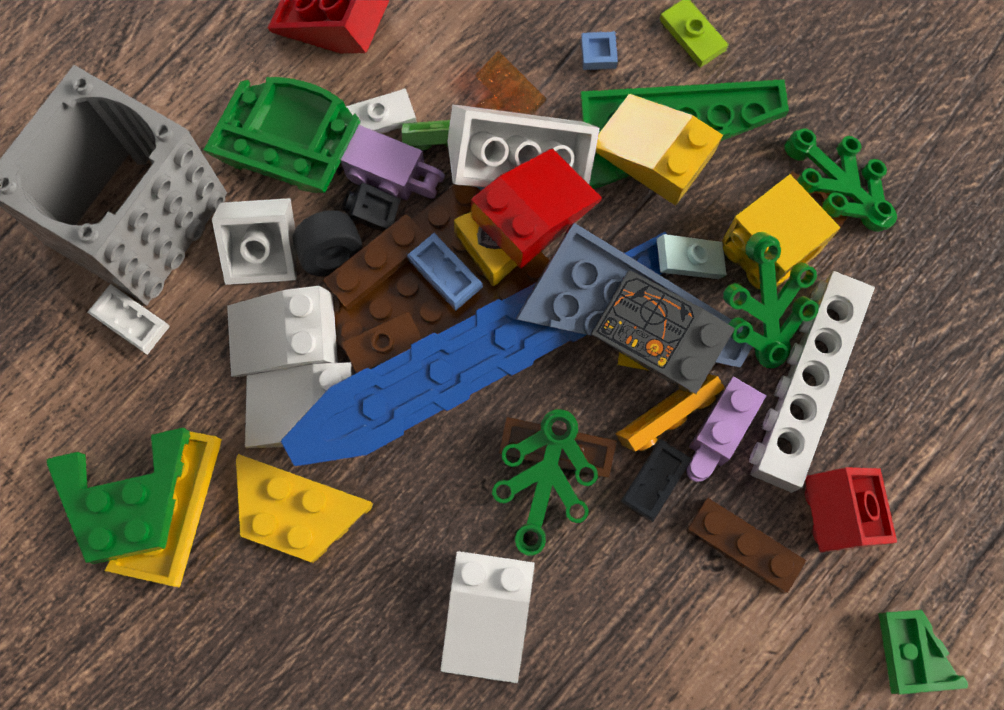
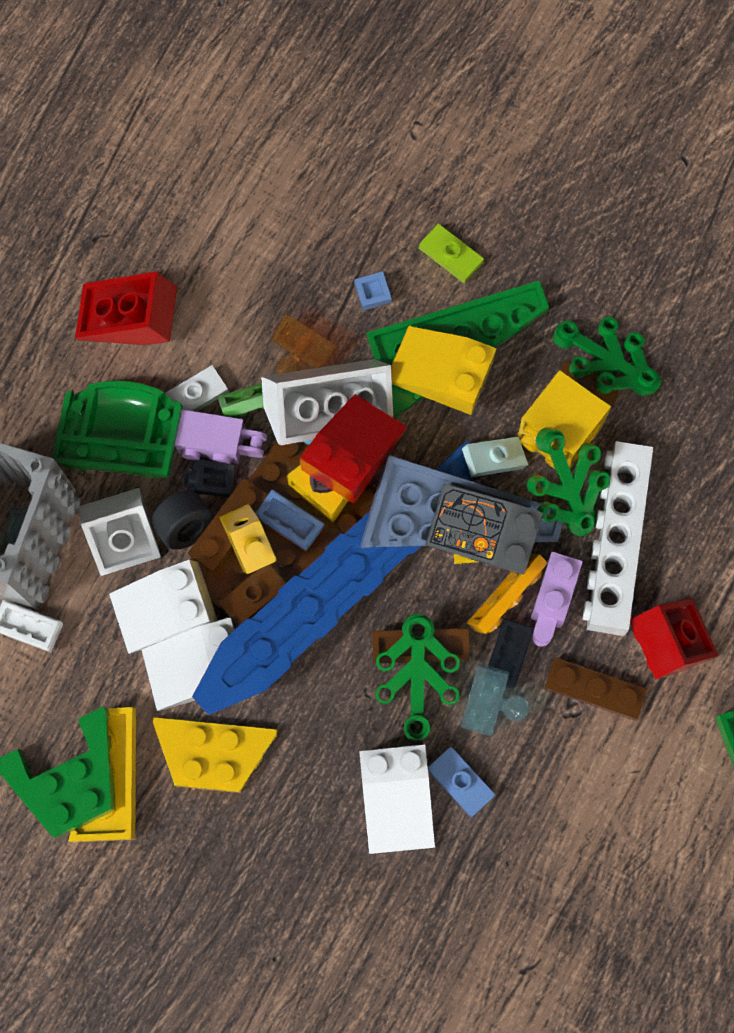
camera: 10 degrees left, 0 degrees up
(391, 279) = (248, 539): none -> yellow torso
(566, 615) = (461, 782): none -> medium blue plate
(618, 529) = (487, 700): none -> clear light blue plate

